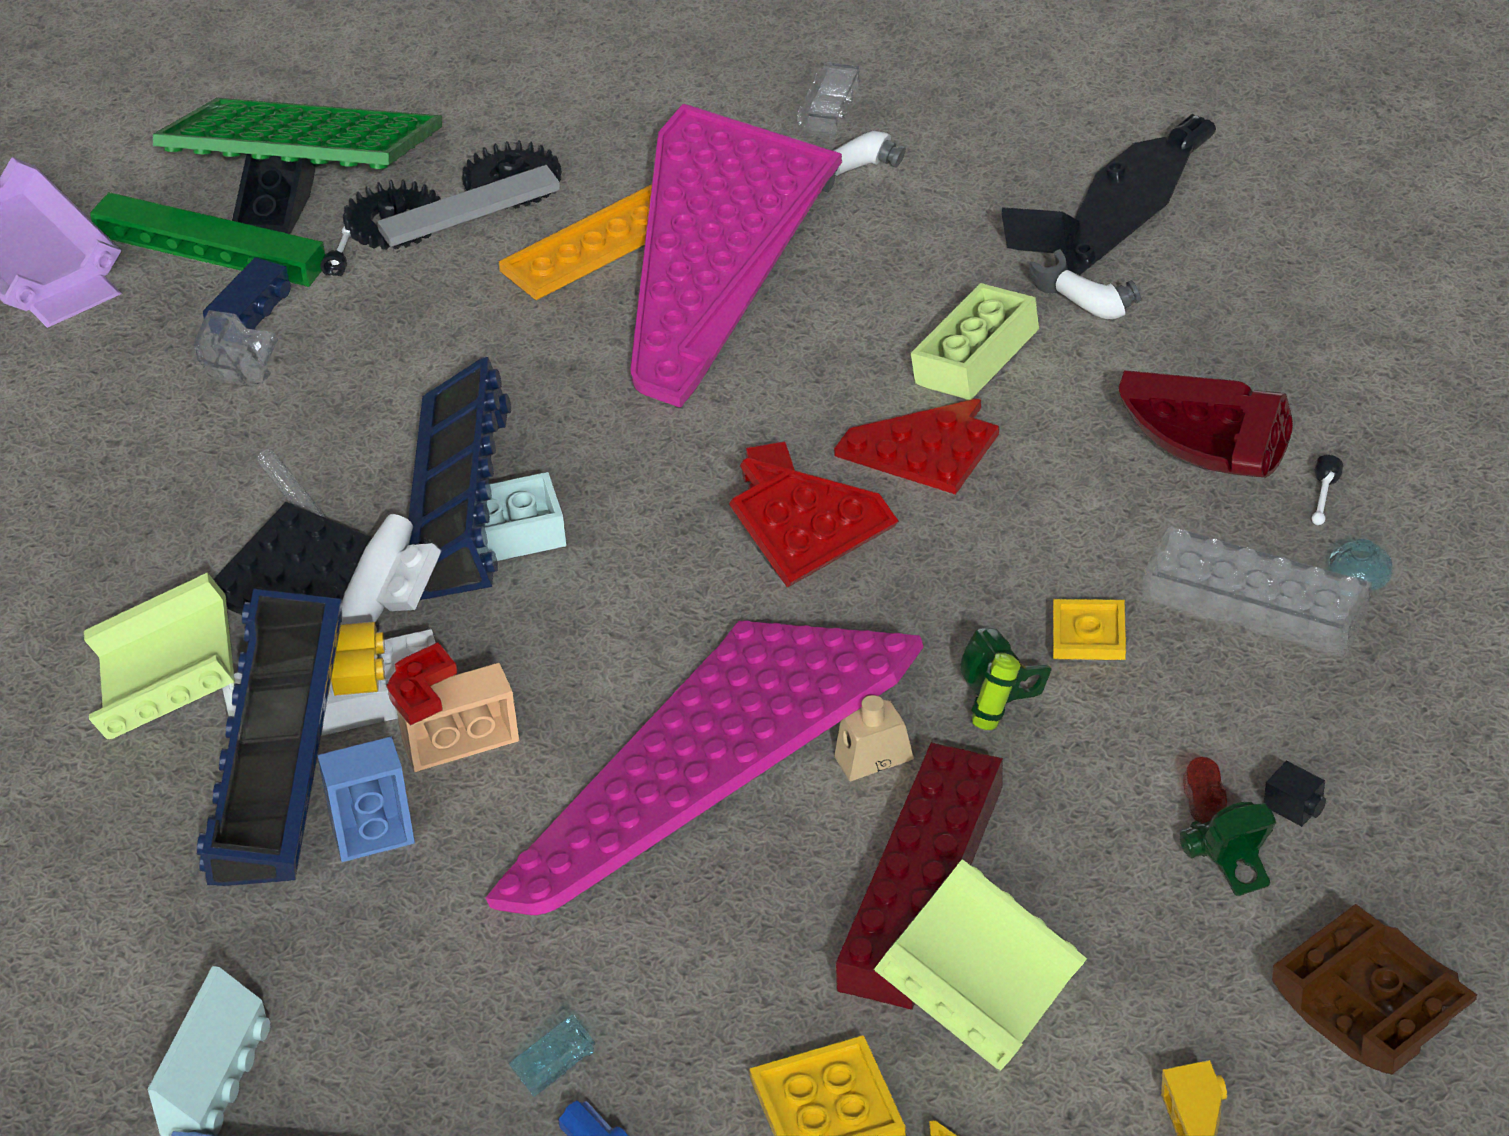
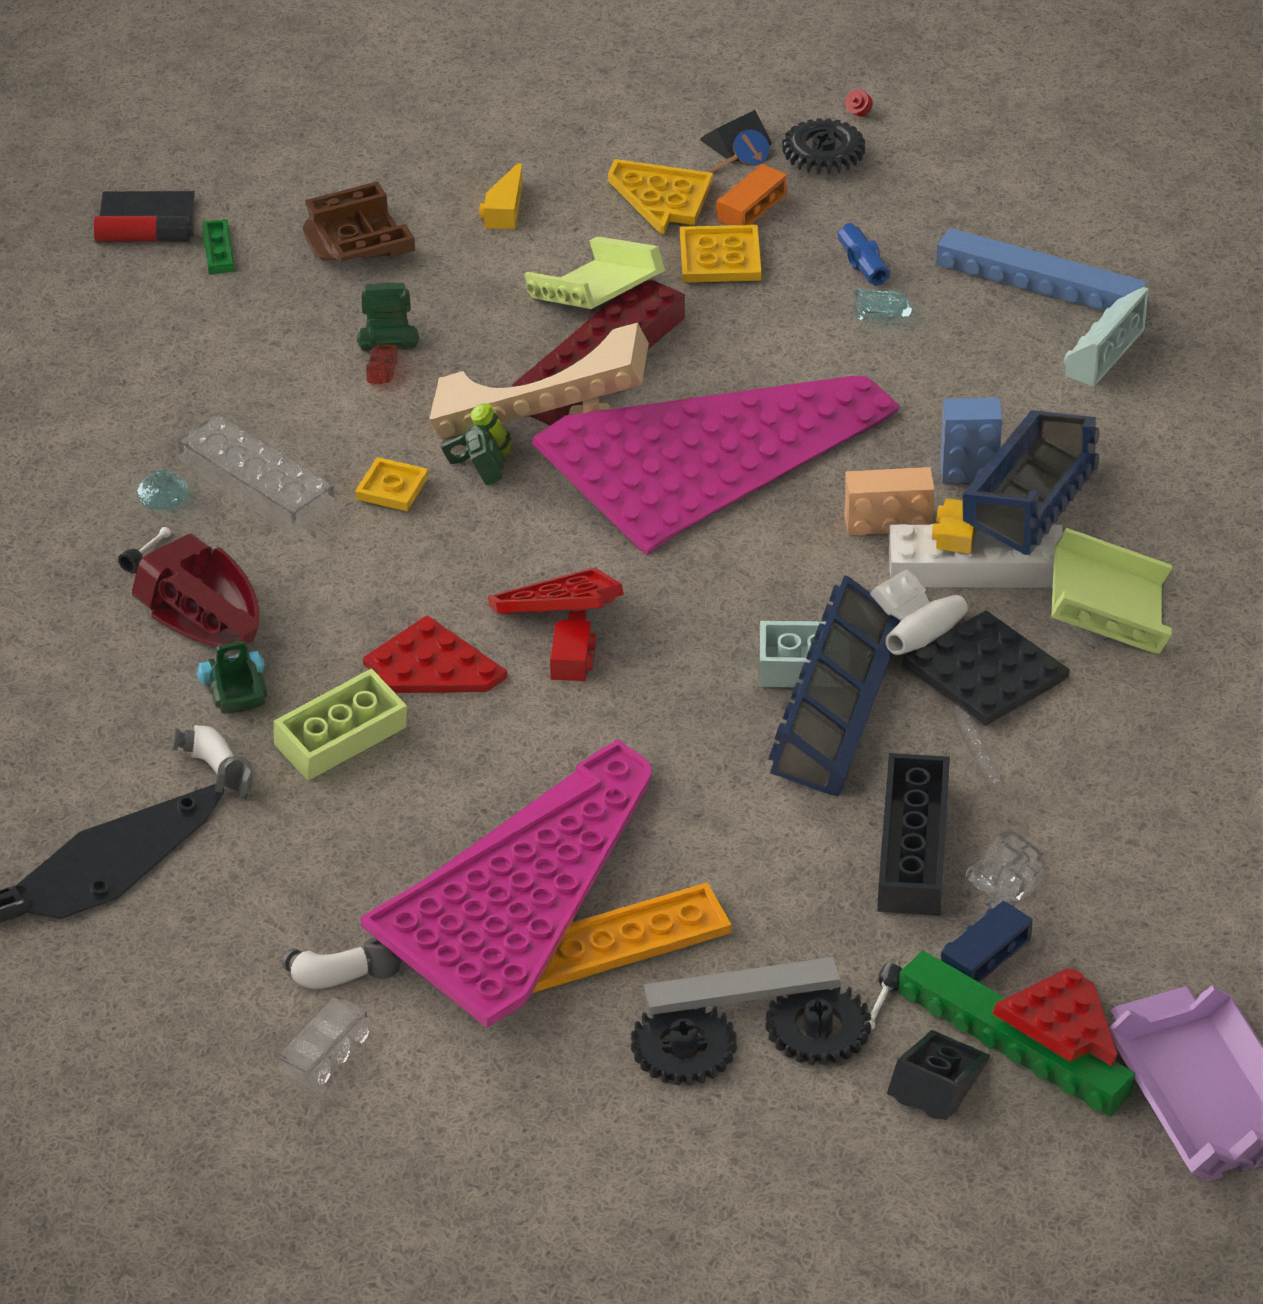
camera: 165 degrees left, 0 degrees up
(163, 239) = (1062, 1016): none -> red wing
(298, 132) = (896, 1101): green plate -> none
(338, 370) = (913, 834): none -> black brick
(411, 682) = (919, 479): red plate -> none
(857, 701) = (608, 369): none -> tan arch
(1039, 230) = (212, 828): black slope -> none
(1112, 352) = (234, 680): none -> dark green piece
(1295, 793) = (325, 346): black brick -> none

